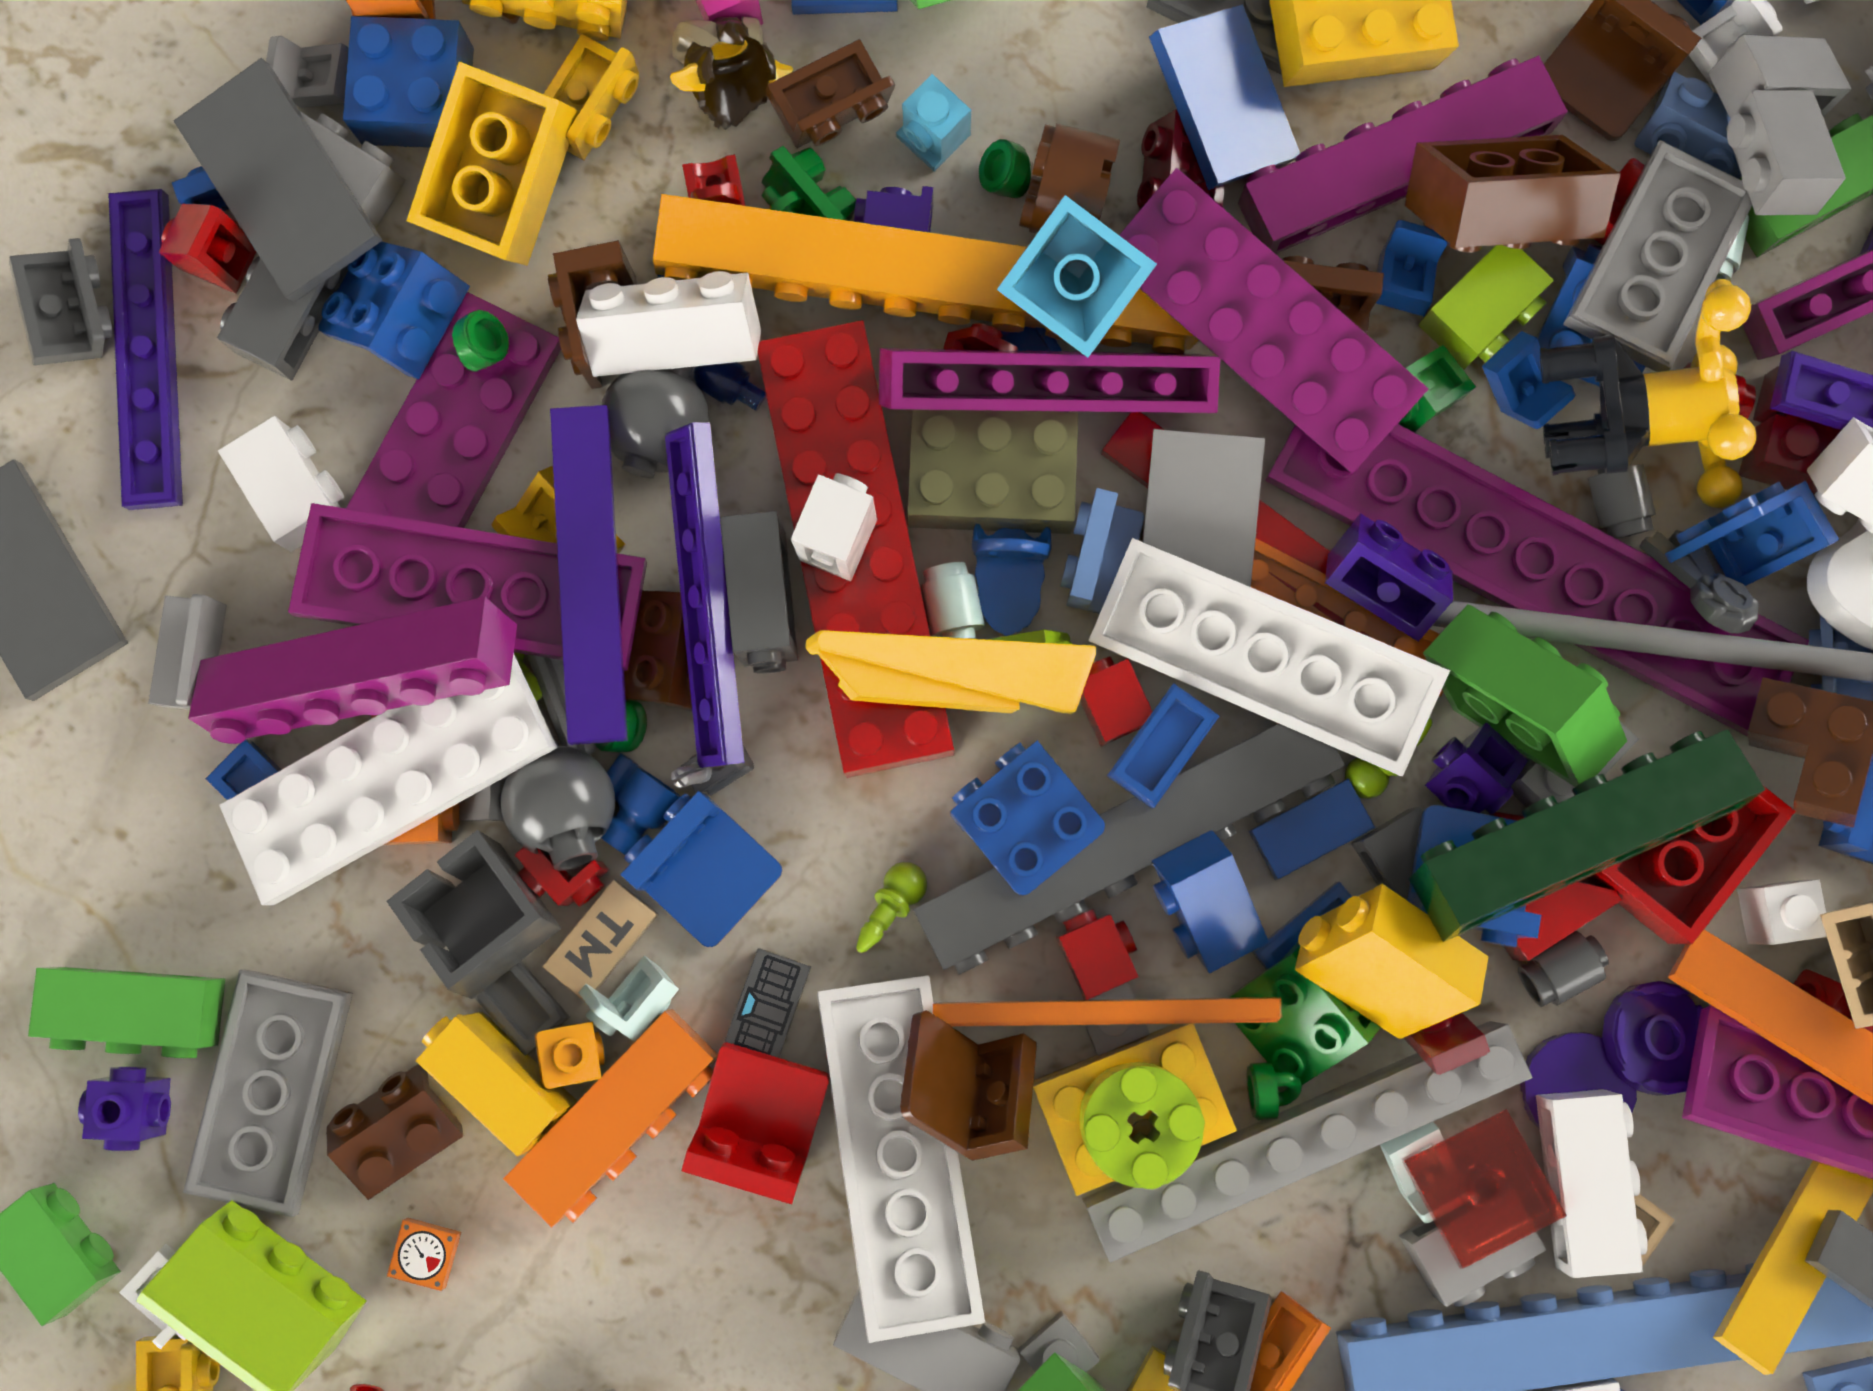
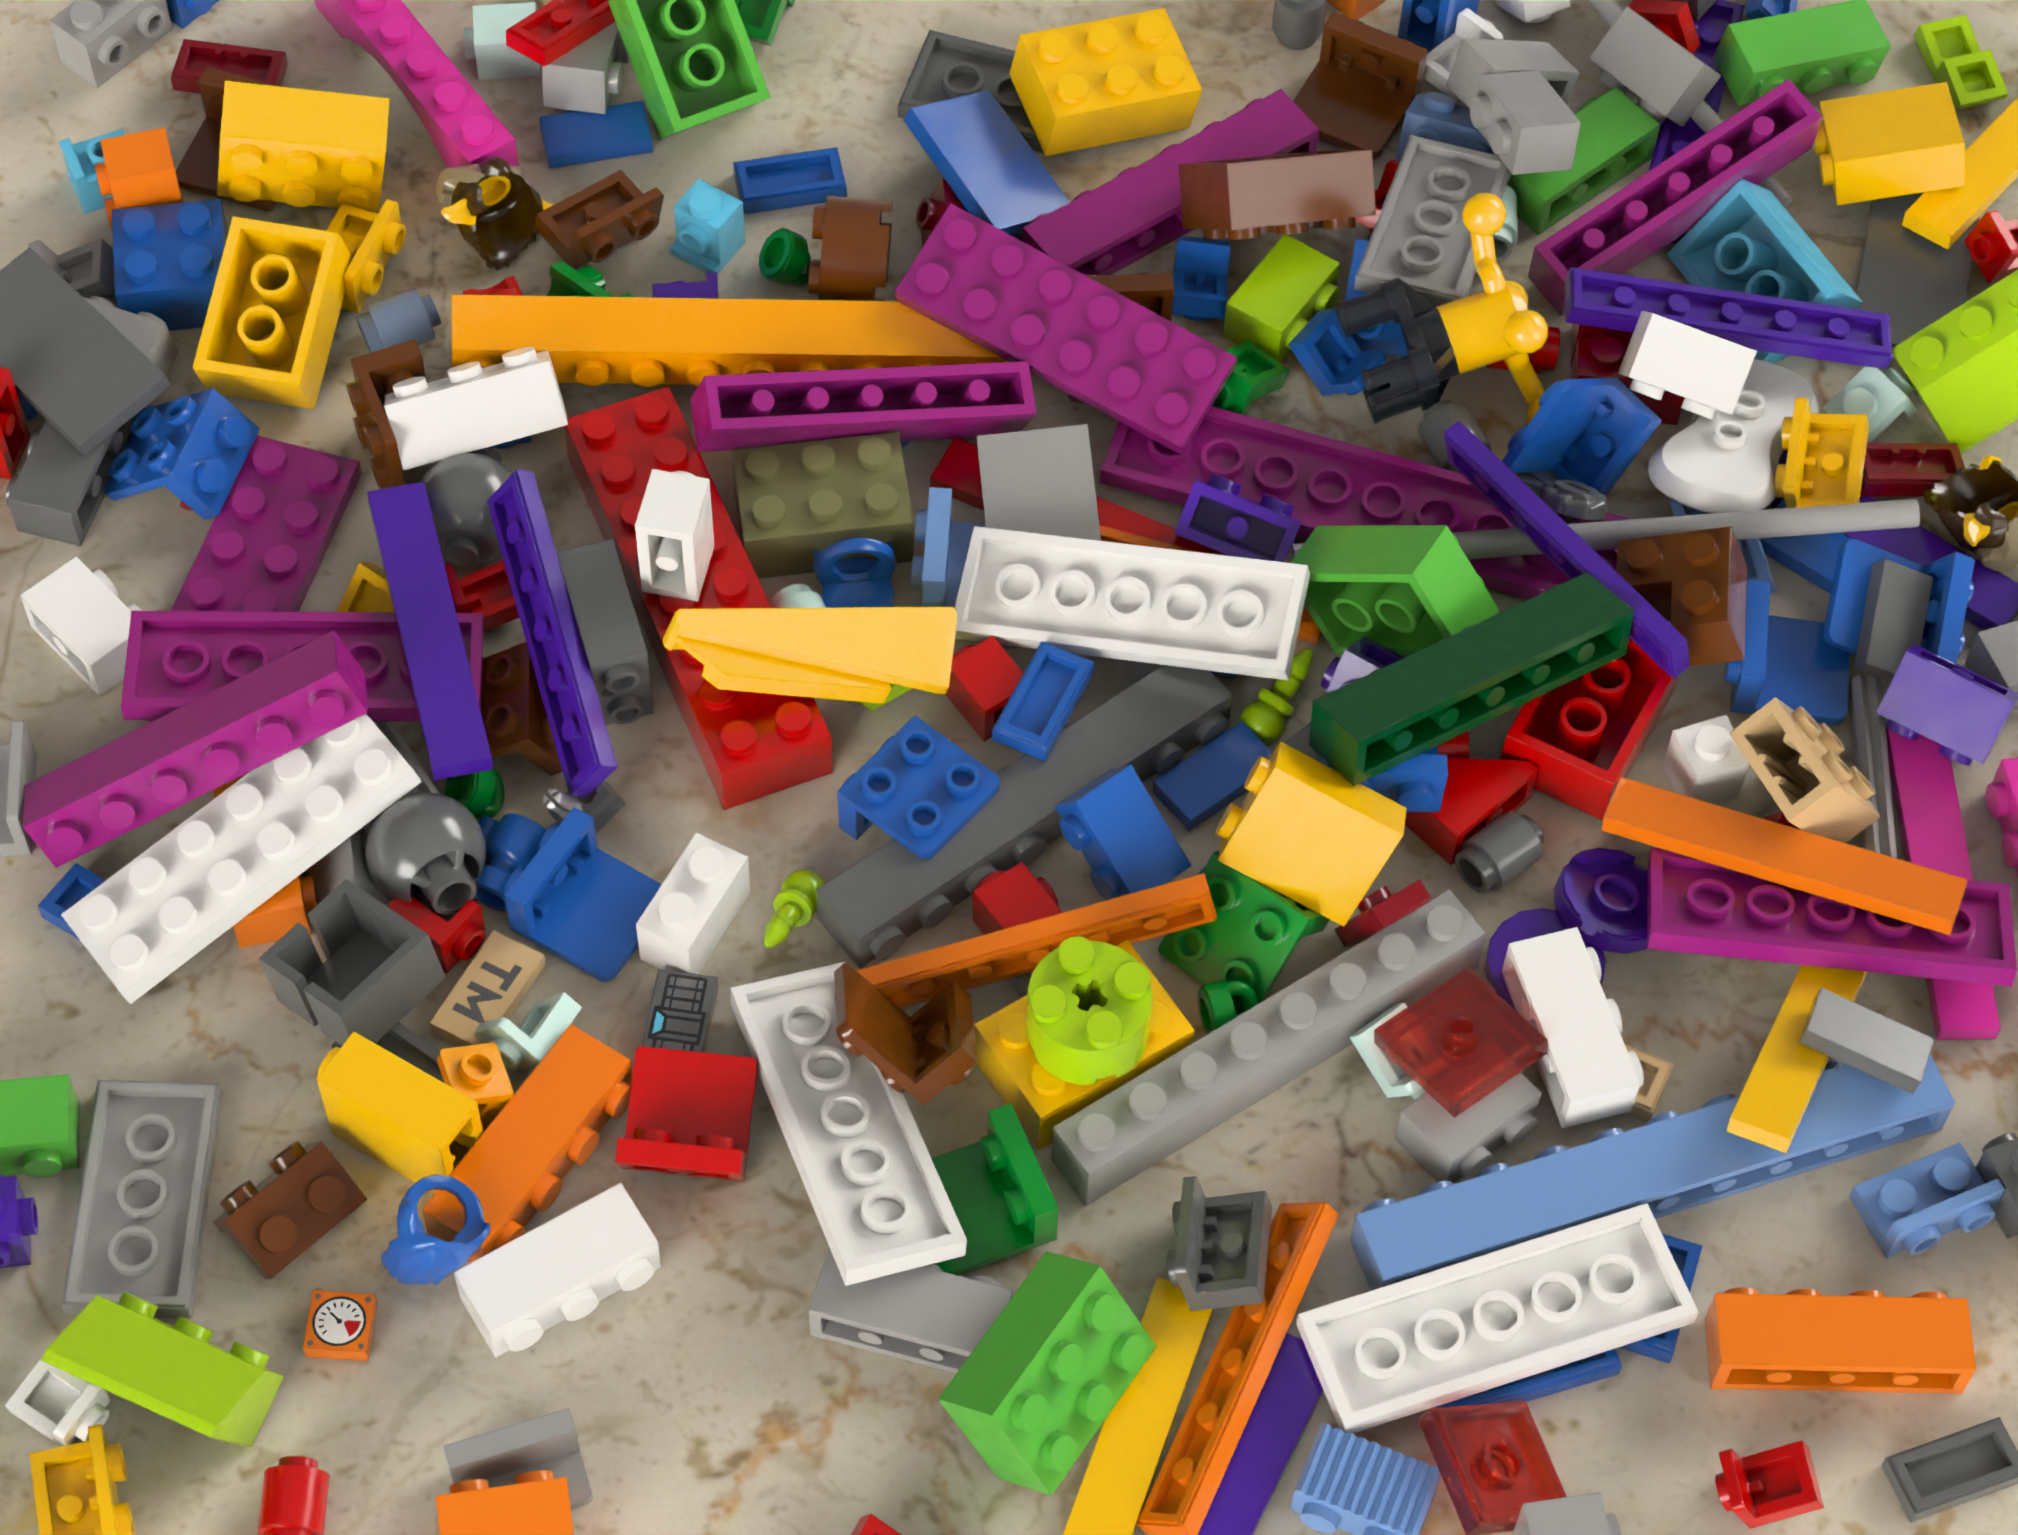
camera: 15 degrees left, 25 degrees down
(480, 340) = (279, 462): green tile -> none
(506, 1229) = (427, 1259): none -> blue piece
(618, 183) = (399, 320): none -> sand blue brick
(620, 1248) = (558, 1271): none -> white brick
(644, 517) = (484, 592): none -> red bracket
(729, 383) = (545, 469): clear blue cylinder -> none
(797, 896) = (693, 906): none -> white brick
(1018, 1242) = (997, 1194): none -> green bracket
(1026, 70) = (789, 180): none -> blue tile
(1076, 276) = (872, 296): medium azure slope -> none
(1707, 676) = (1562, 543): none -> dark purple tile

